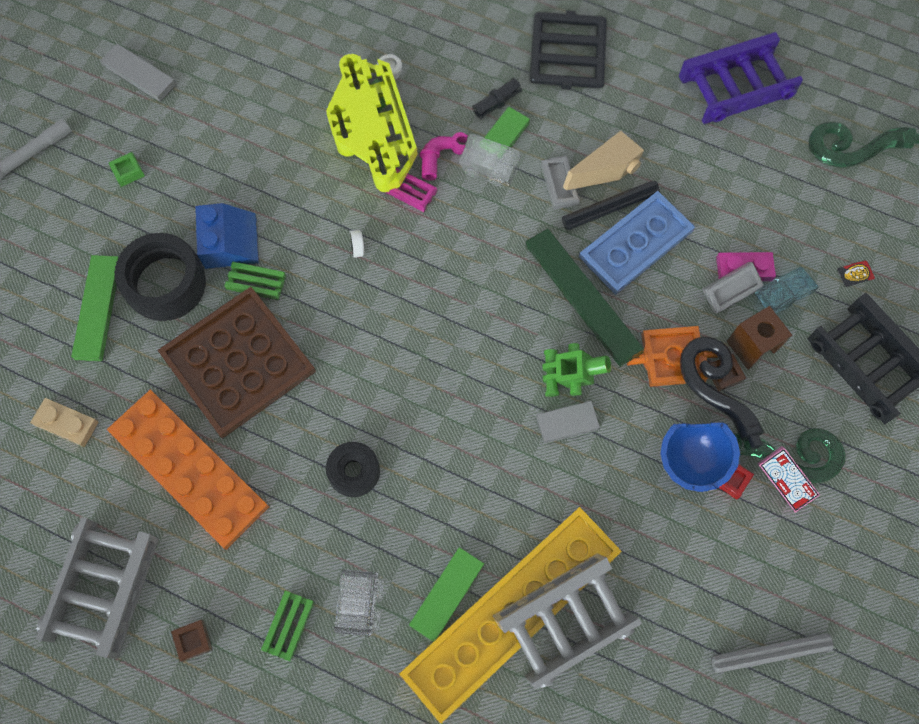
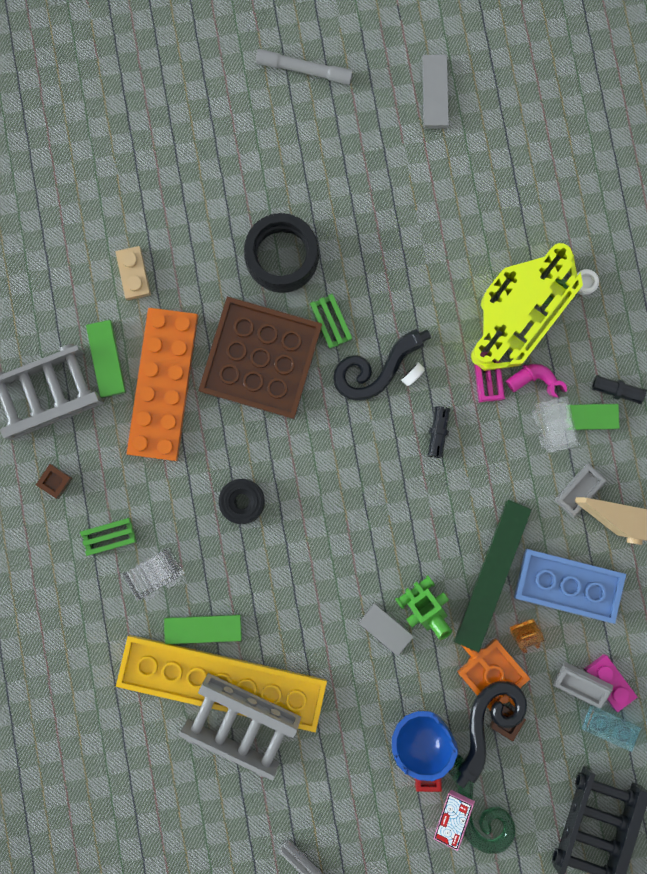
camera: 55 degrees right, 15 degrees up
(95, 309) = (228, 224): bright green tile -> none
(119, 504) = (106, 358): none -> bright green tile
(126, 169) = (349, 152): bright green tile -> none
(226, 235) = (348, 273): blue slope -> none
(327, 237) = (405, 345): none -> black plant
(423, 257) = (438, 432): none -> black pin
(610, 205) = (589, 544): black axle -> none
(656, 304) = (527, 634): none -> clear orange tile
(757, 336) = (540, 729): reddish brown piece -> none

